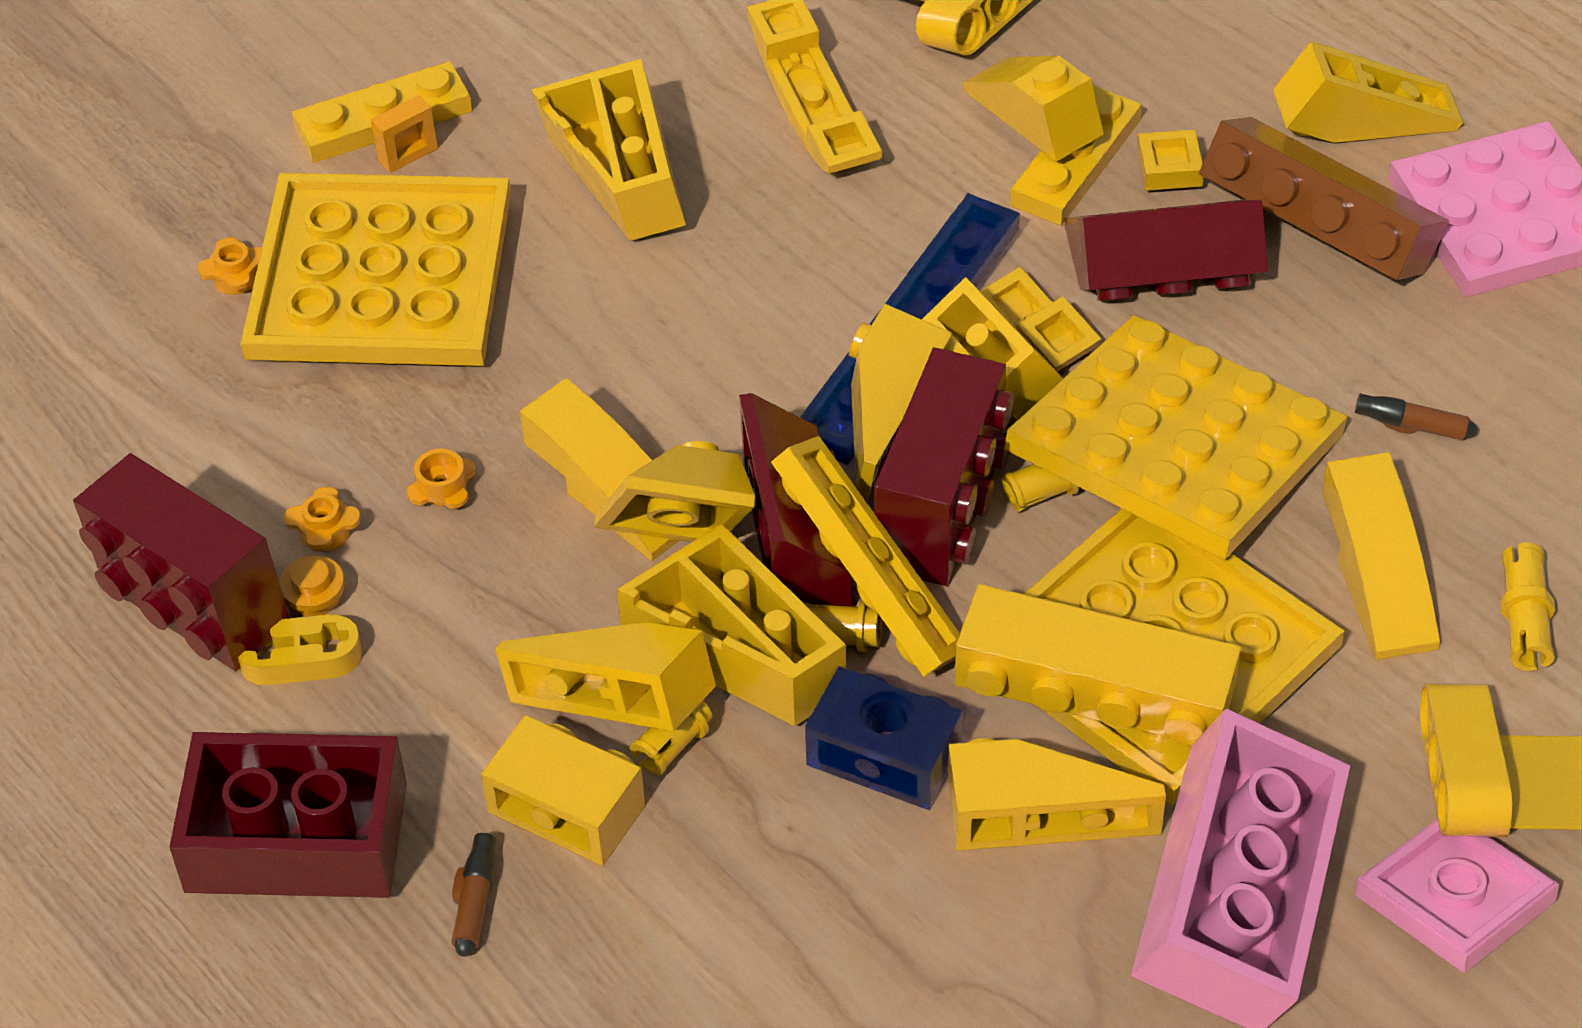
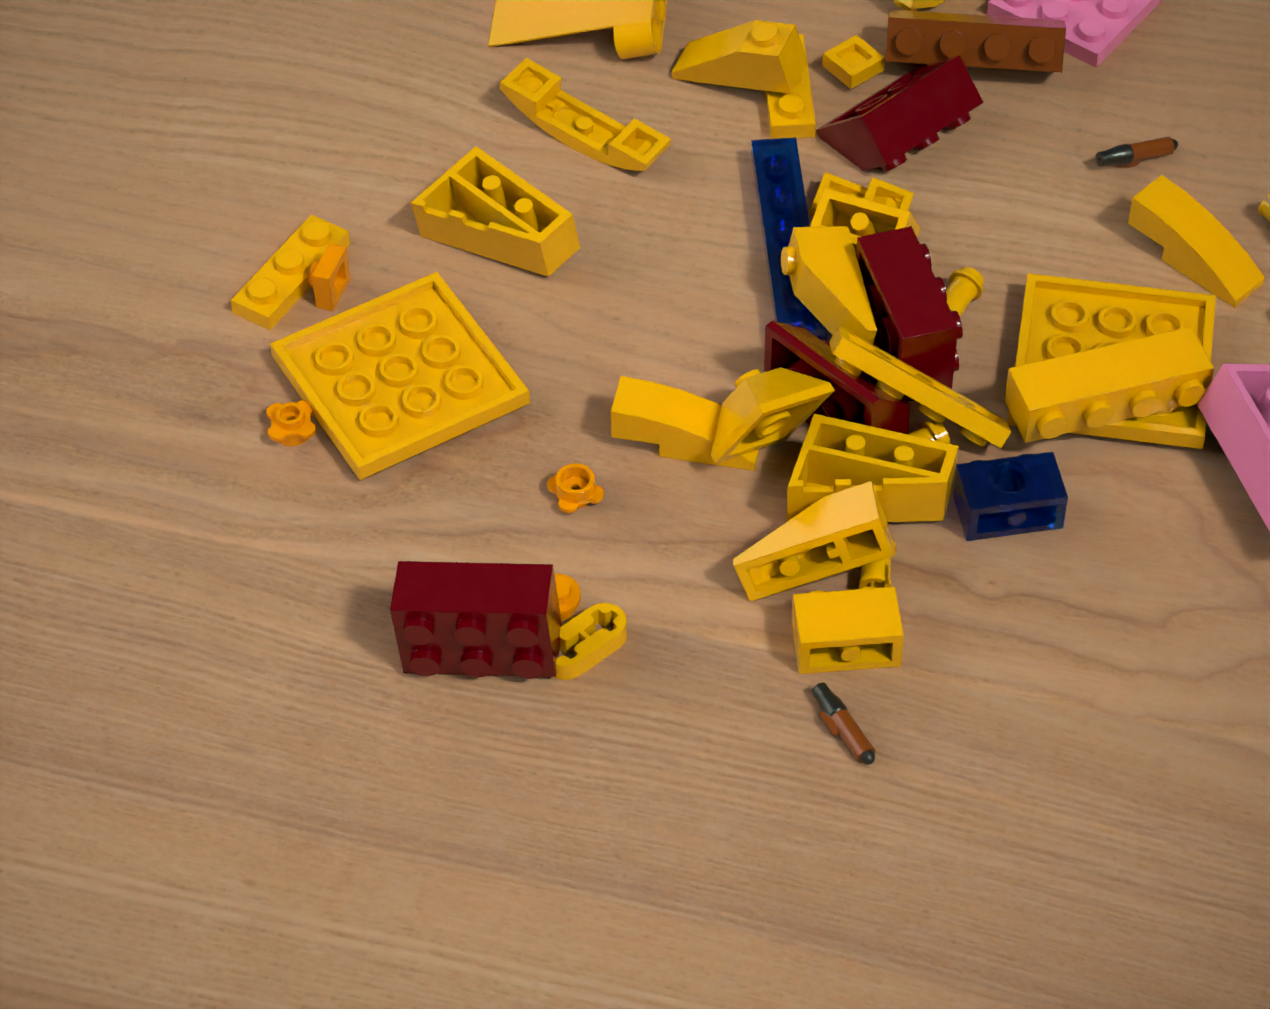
camera: 35 degrees left, 0 degrees up
(289, 814) = (698, 735): dark red brick -> none
(323, 520) = (514, 542): light orange plate -> none
(1035, 796) = (1130, 480): yellow slope -> none
(1177, 435) = (1018, 227): yellow plate -> none

